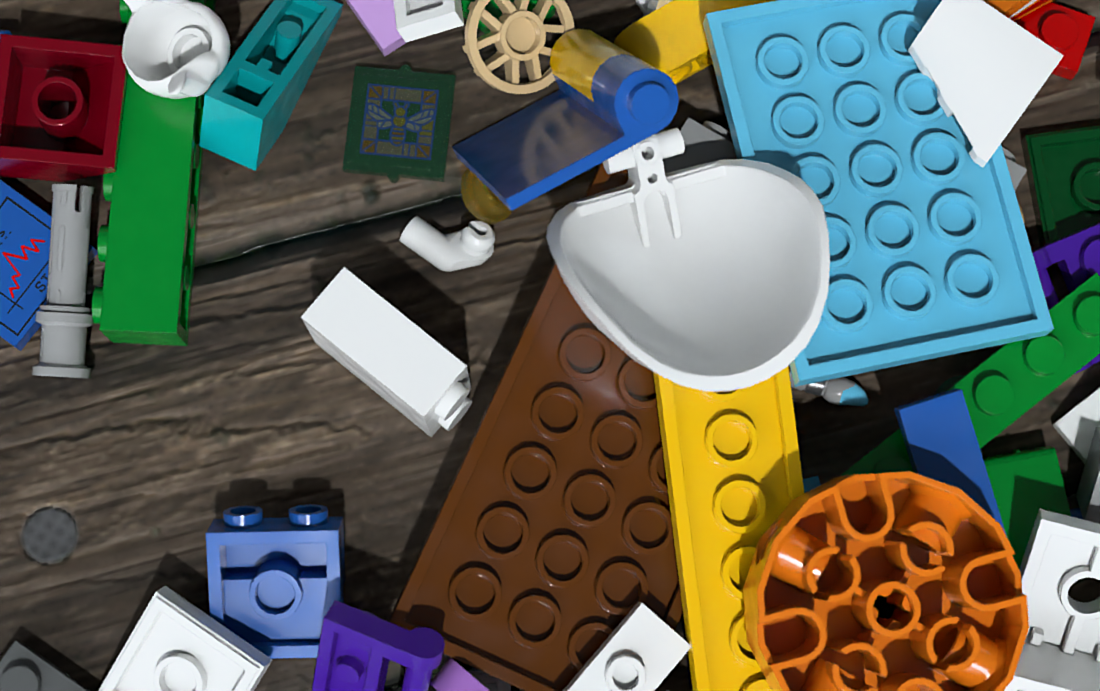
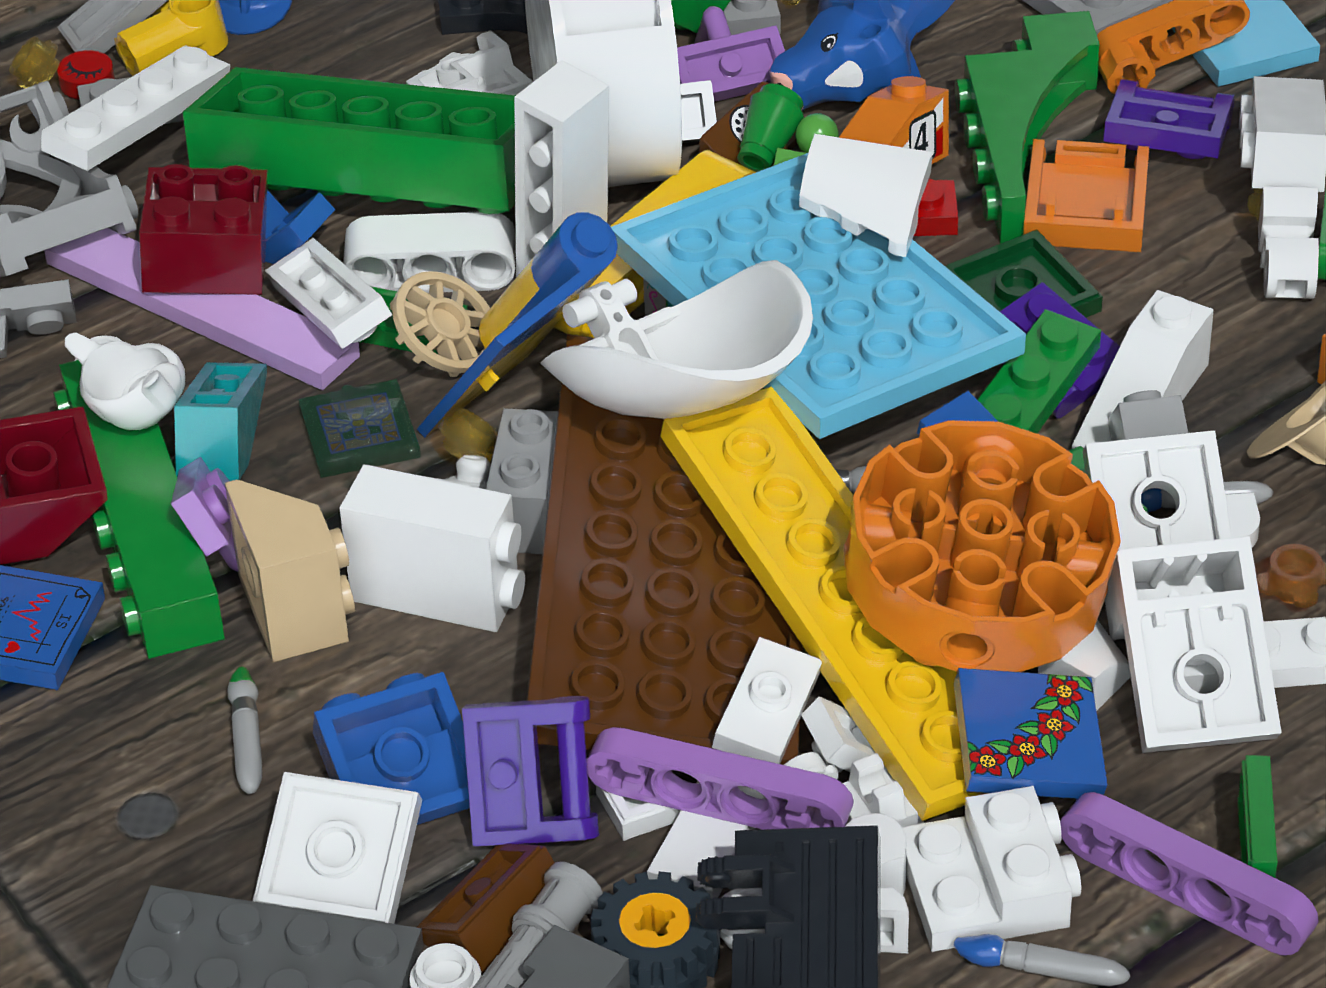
camera: 20 degrees left, 35 degrees down
(64, 316) = (96, 626): light grey pin -> none
(174, 435) = (245, 724): none -> light grey piece
(202, 214) = (204, 509): none -> medium lavender plate
(246, 331) = (290, 569): none -> tan slope
(510, 282) = (524, 468): none -> light grey brick

